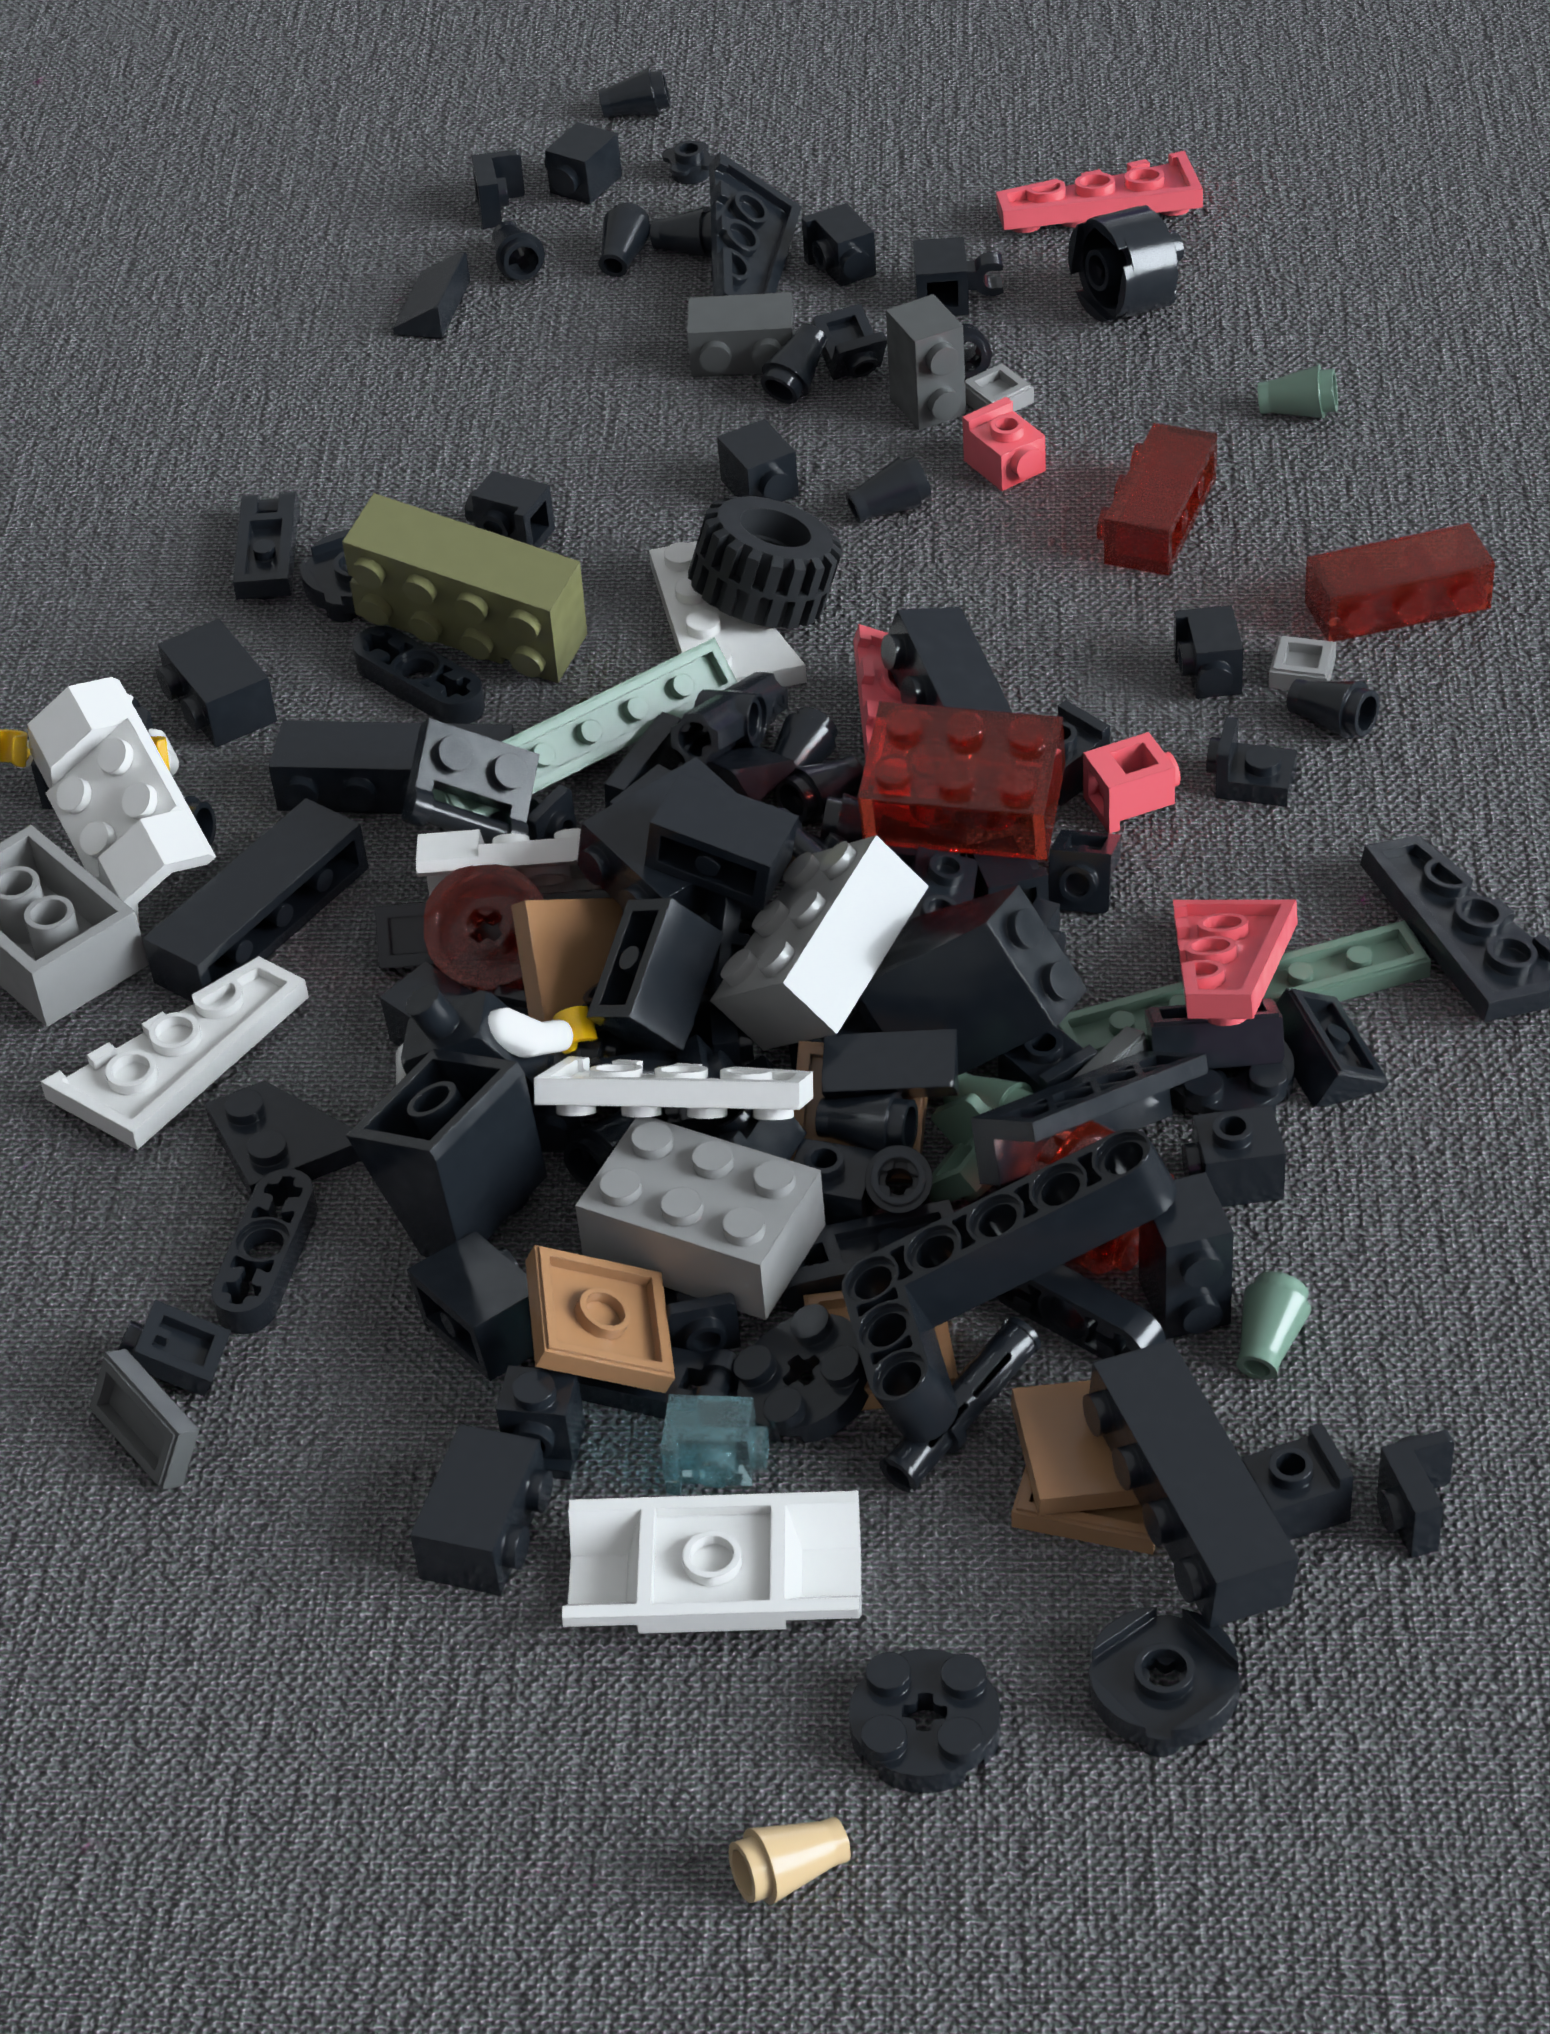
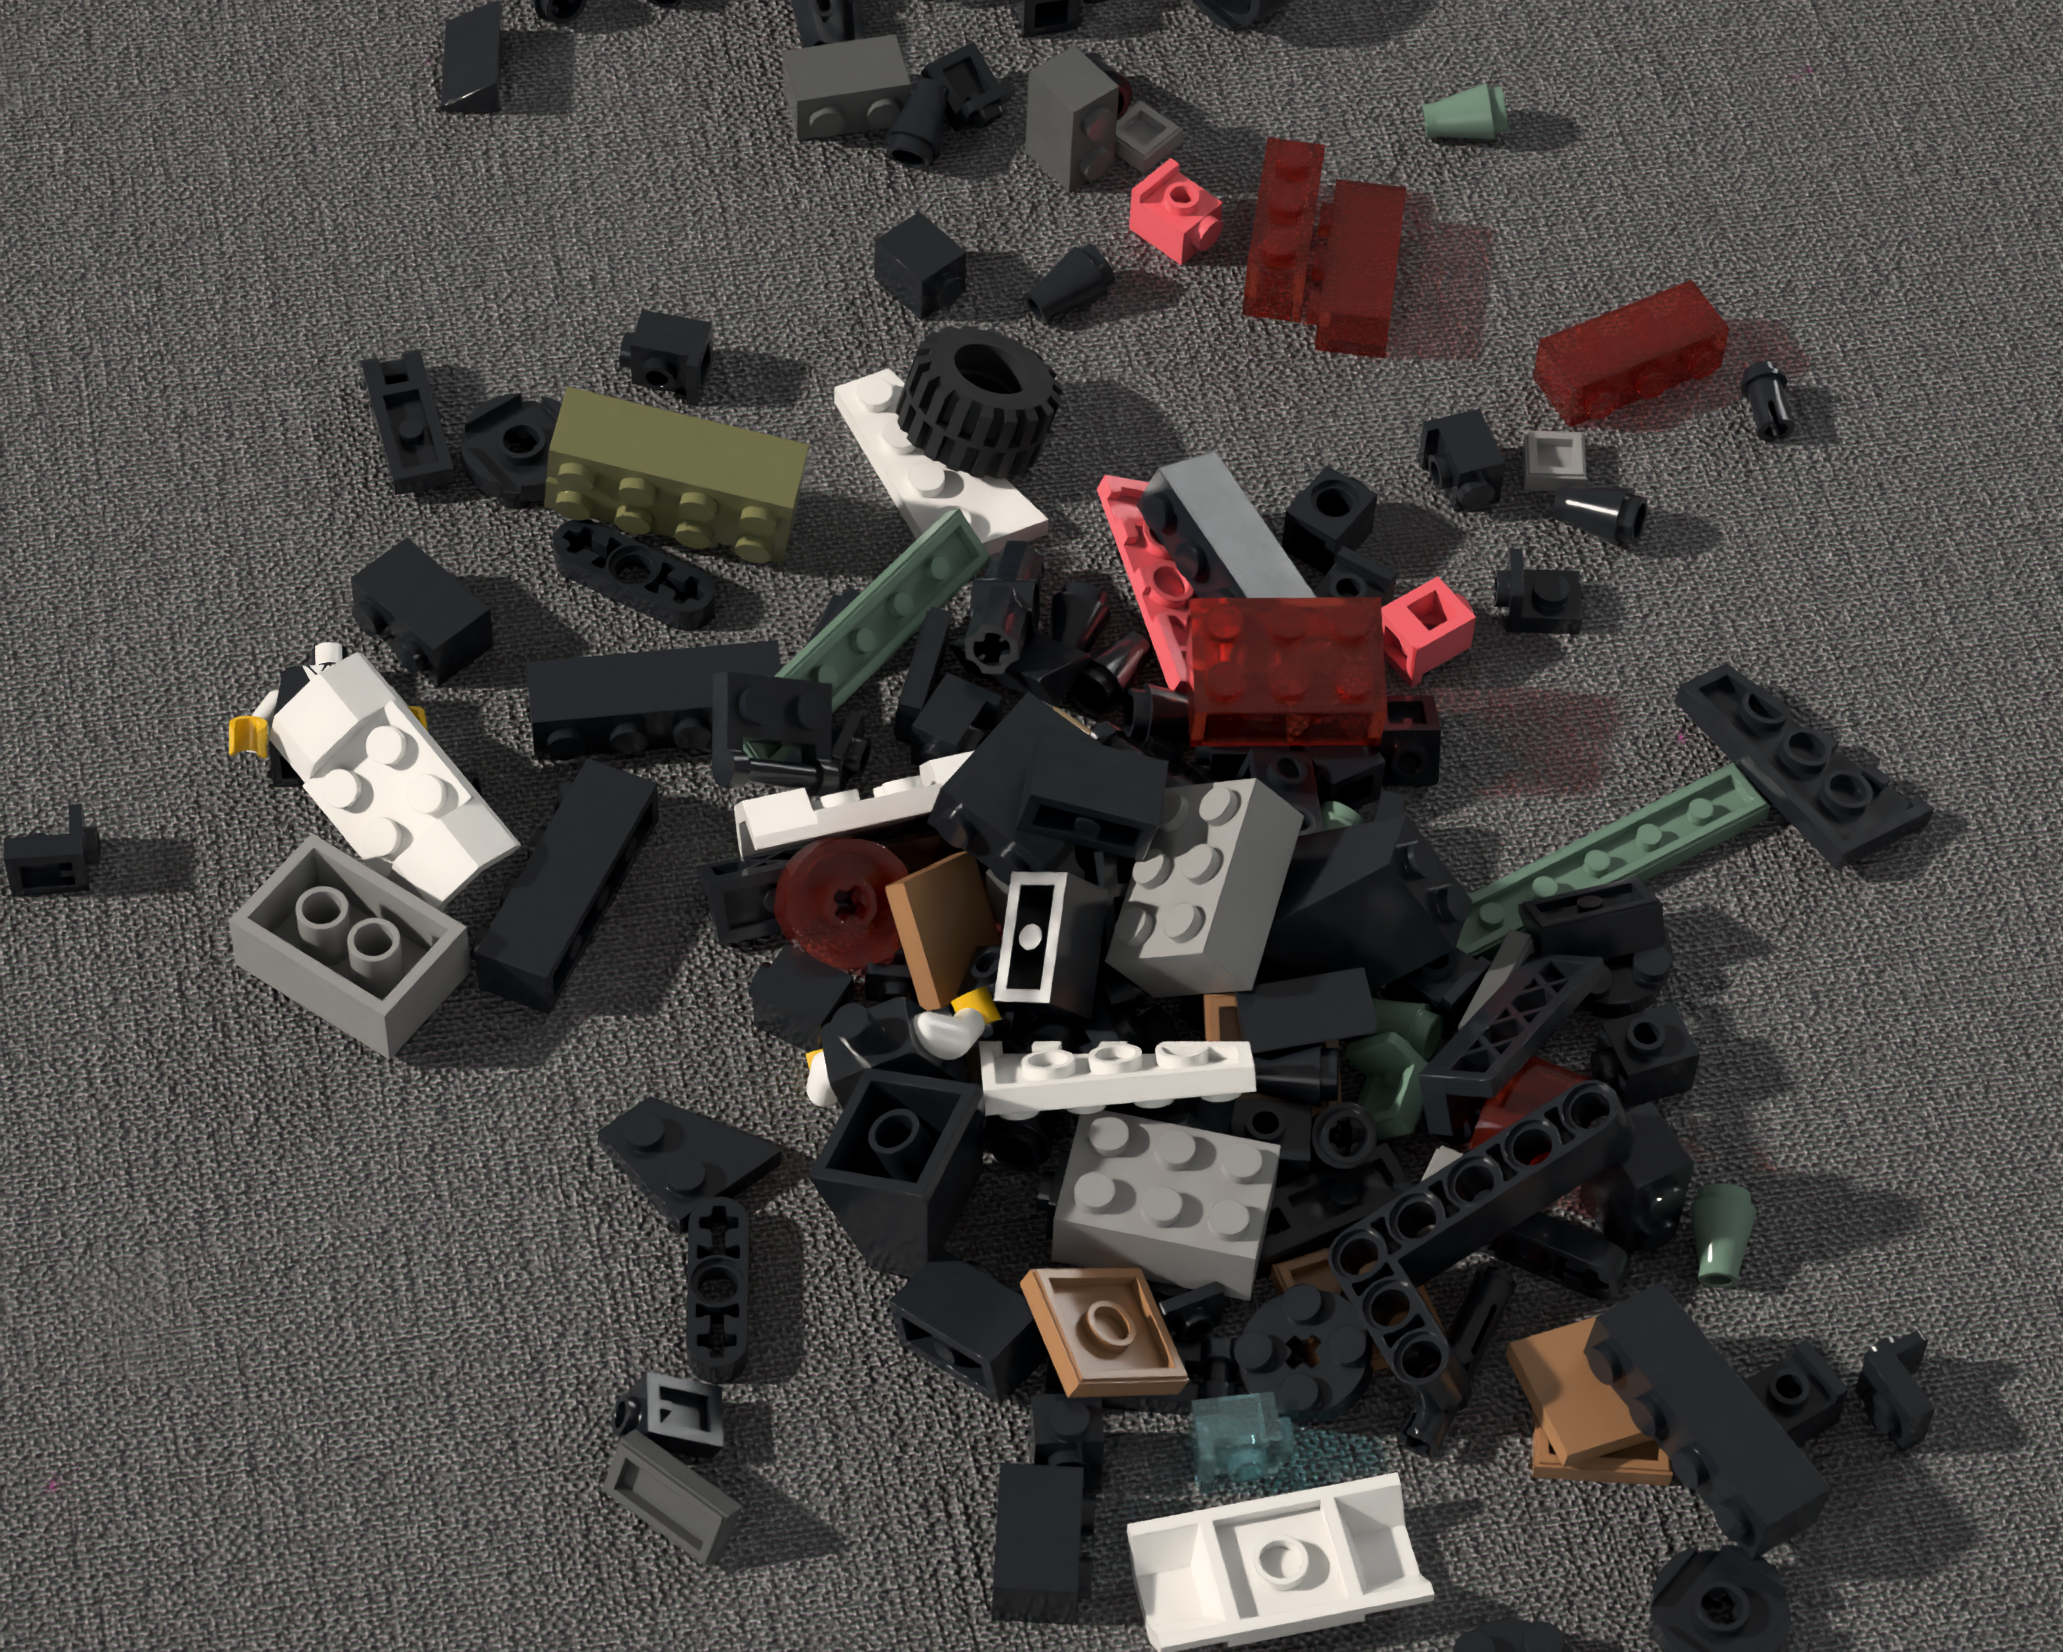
camera: 20 degrees left, 10 degrees up
(178, 1055) = (542, 1085): white wing -> none
(1070, 674) = (1328, 516): none -> black brick
(1093, 459) = (1283, 230): none -> clear red brick
(1230, 954) = (1585, 831): coral wing -> none
(1327, 1049) = (1698, 922): black slope -> none
(1523, 622) = (1765, 390): none -> black pin

